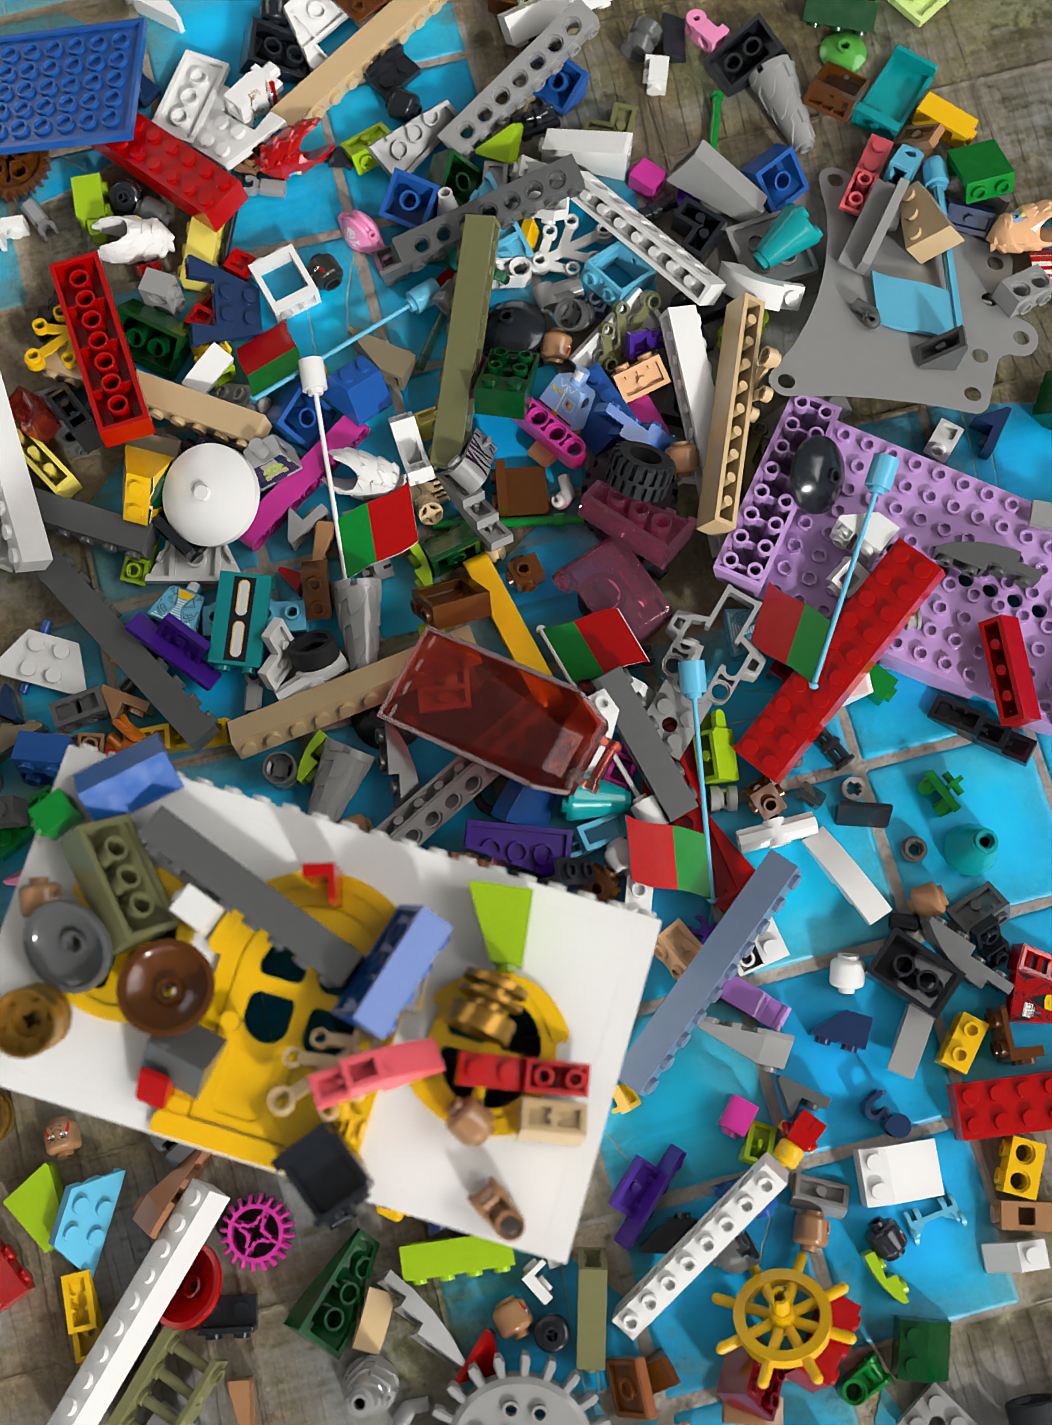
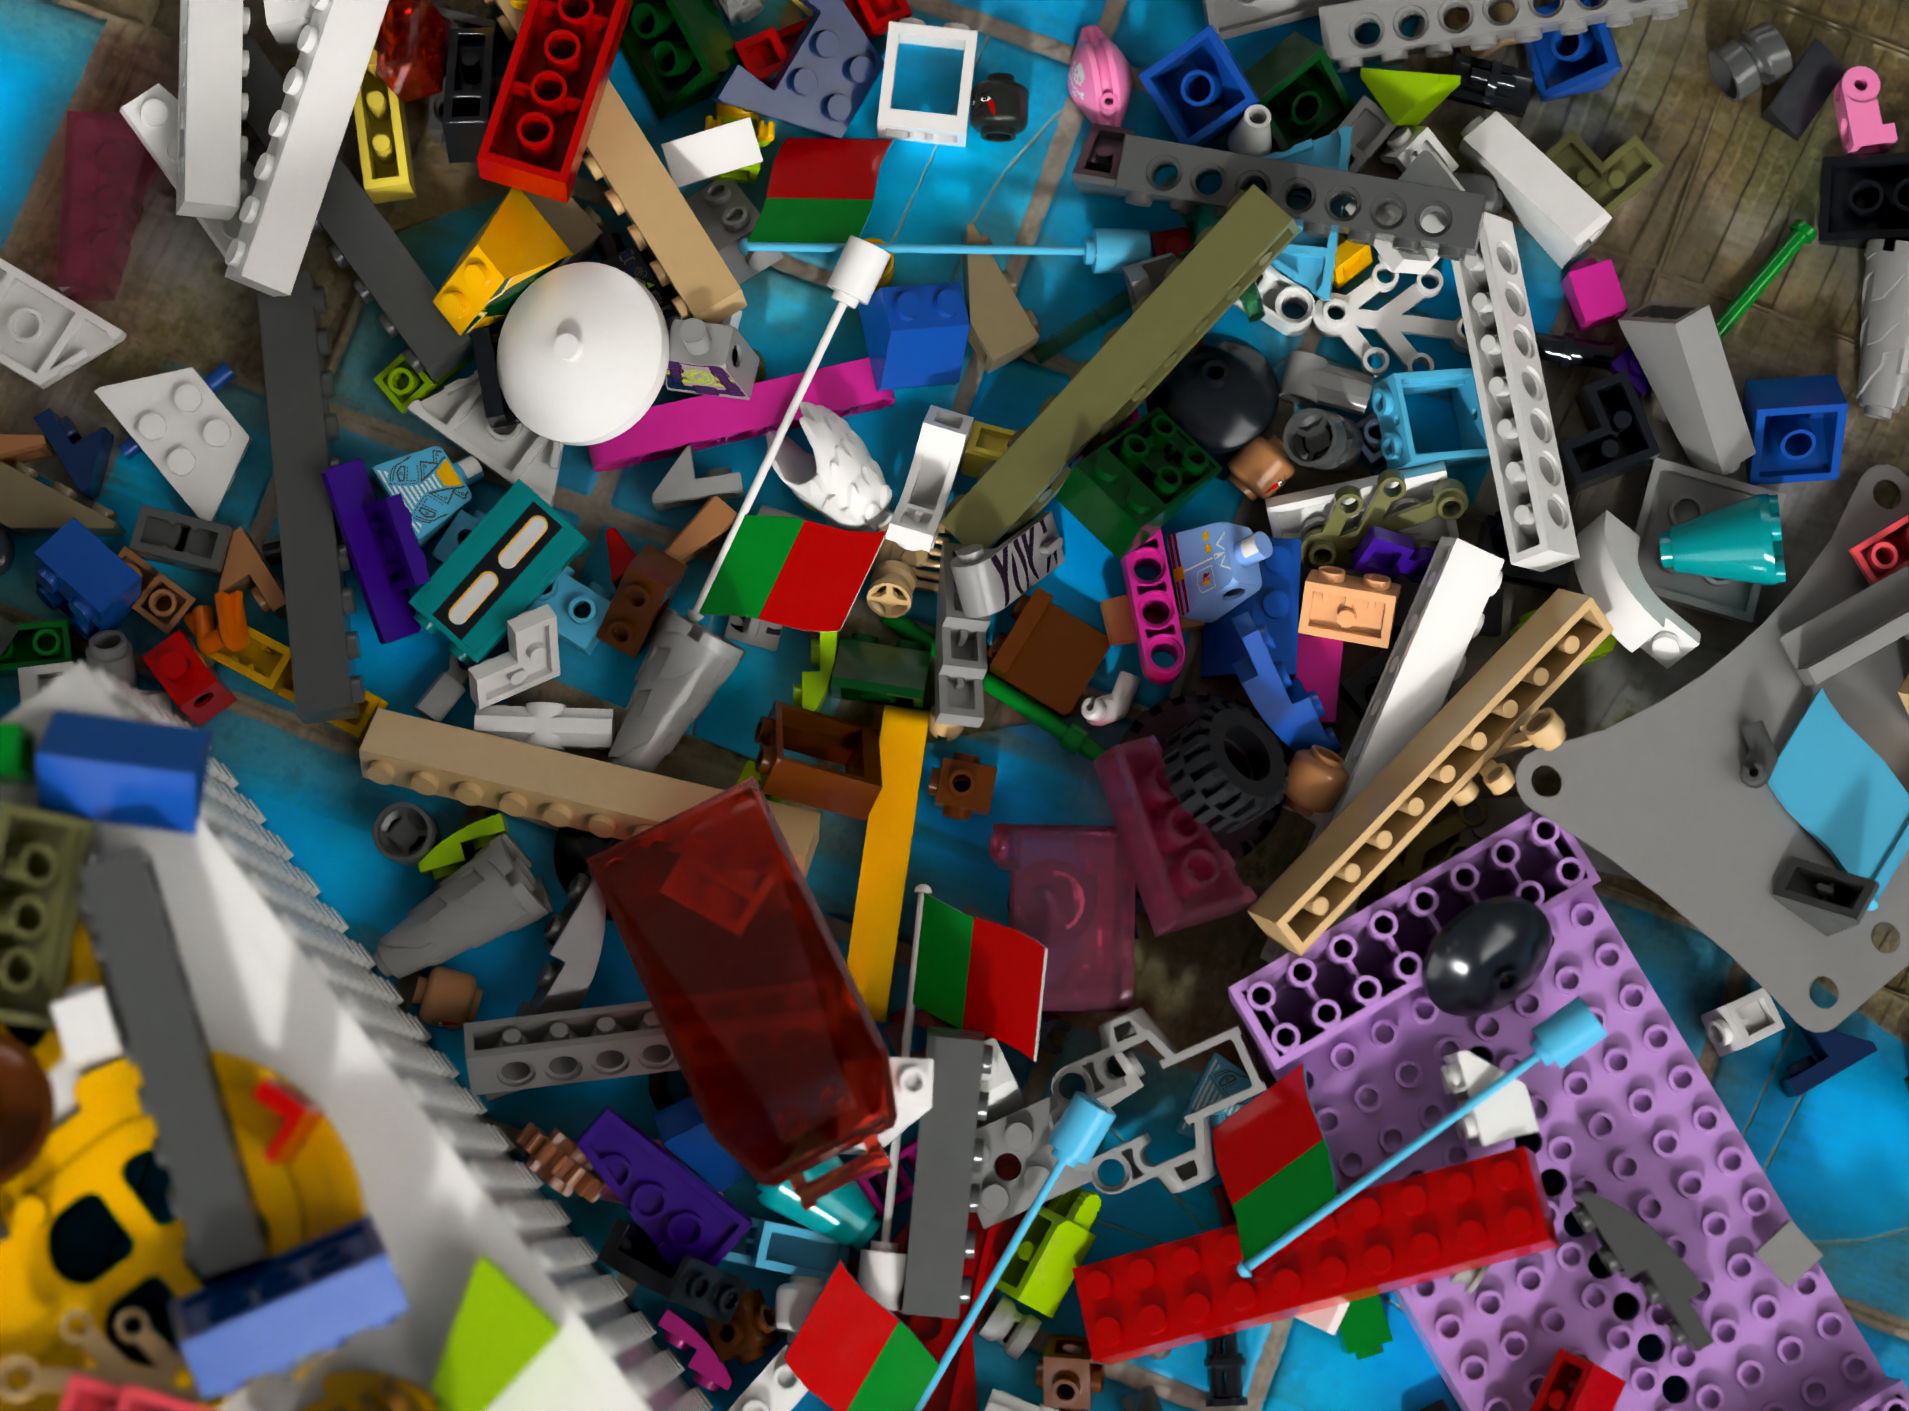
camera: 30 degrees right, 5 degrees up
(295, 416) = (796, 308): blue slope -> none
(313, 650) = (568, 710): black tyre -> none
(656, 74) = (1731, 133): white brick -> none
(857, 579) = (1432, 1155): white brick -> none

